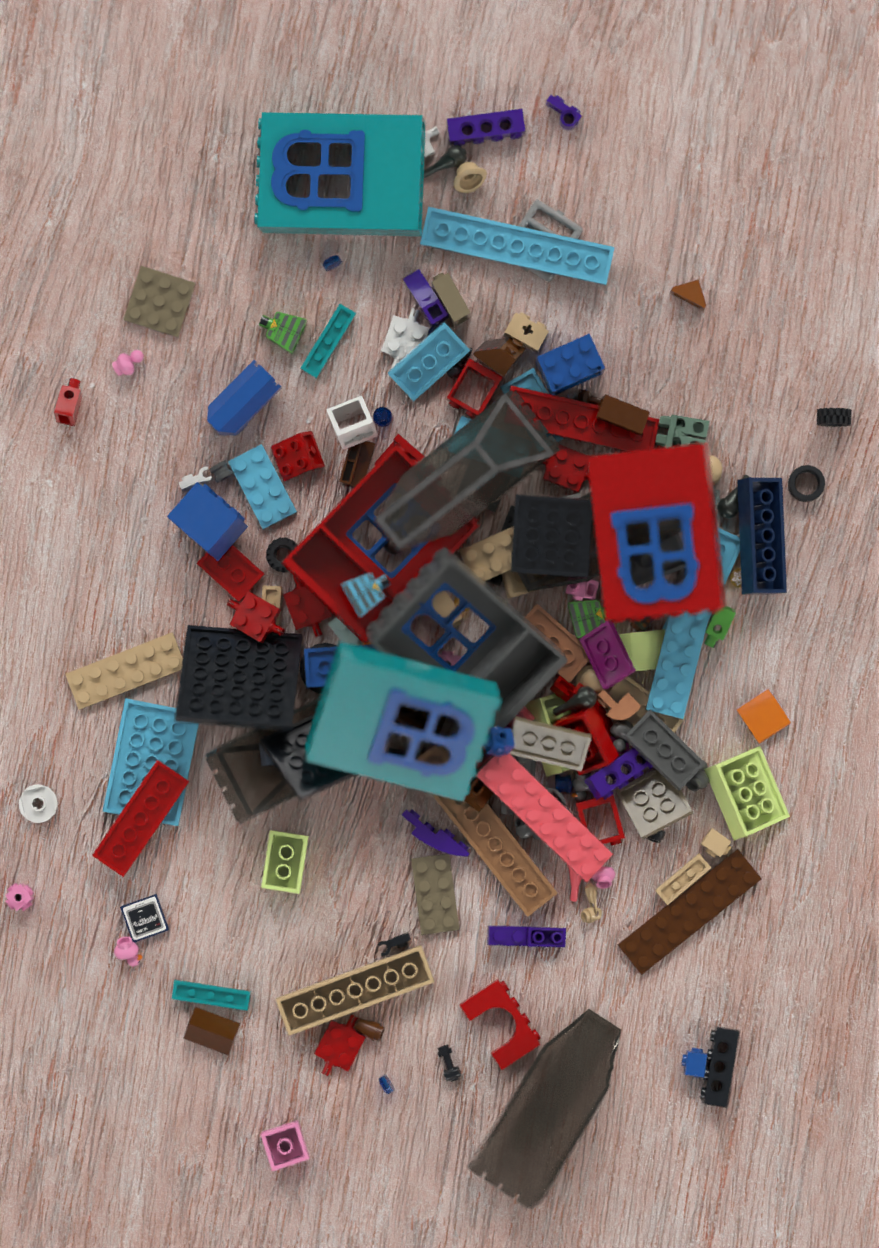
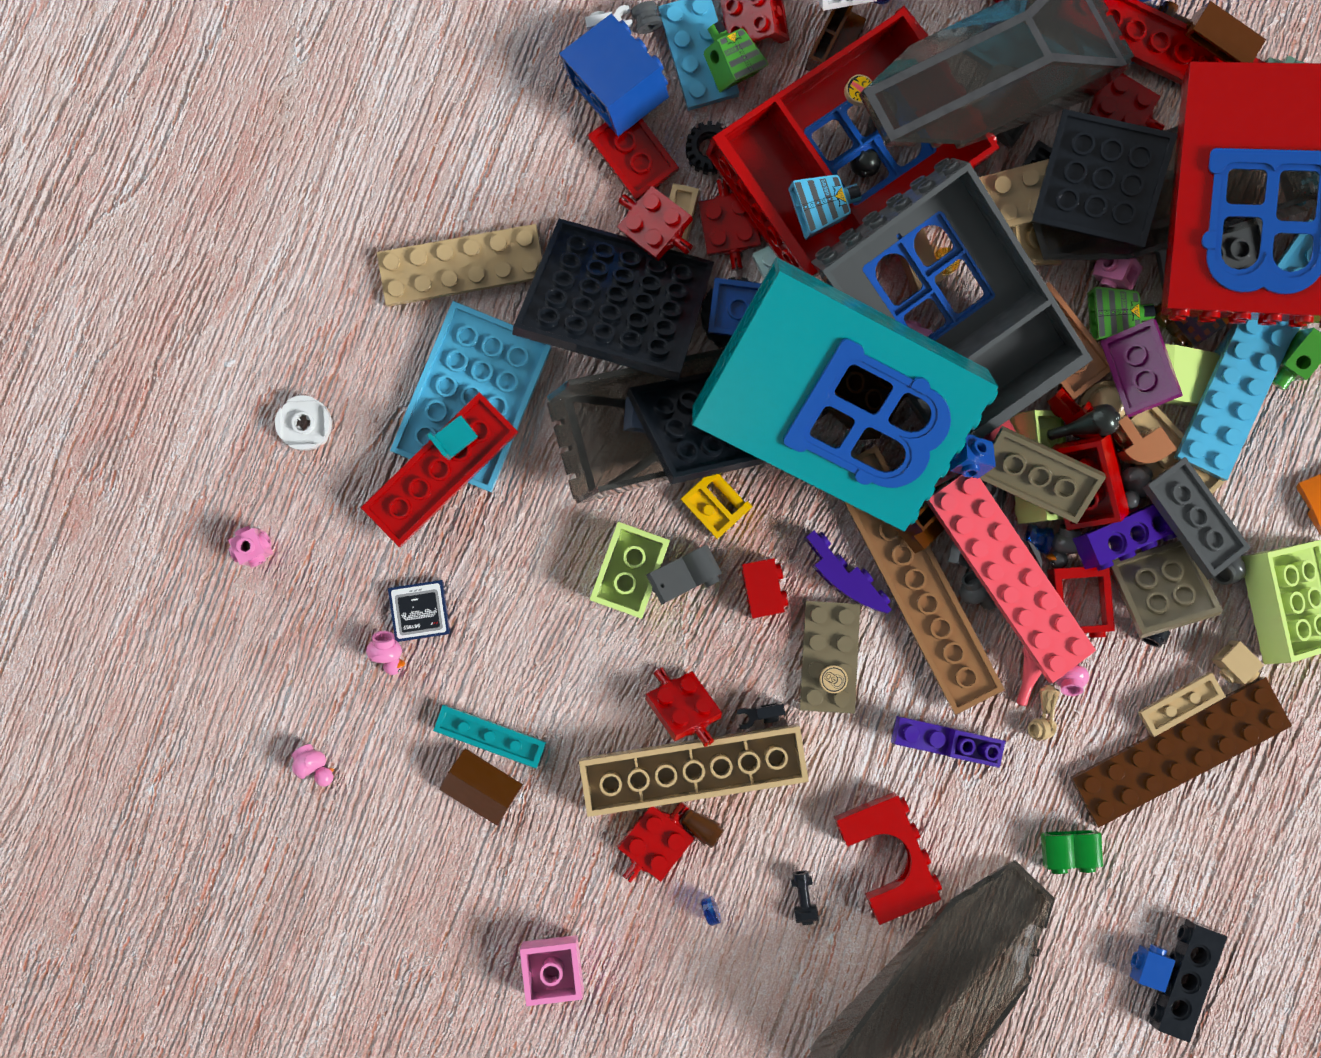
camera: 15 degrees right, 0 degrees up
(91, 1036) = (311, 761): none -> bright pink animal
(146, 795) = (453, 437): none -> teal bracket
(286, 491) = (732, 57): none -> bright green torso
(323, 857) = (685, 574): none -> dark grey door
(332, 808) = (710, 509): none -> yellow plate
(339, 947) = (683, 706): none -> red plate
(373, 508) = (854, 87): none -> tile
(379, 855) = (763, 588): none -> red brick
(439, 909) = (833, 679): none -> tan tile
(625, 994) = (1072, 850): none -> green brick

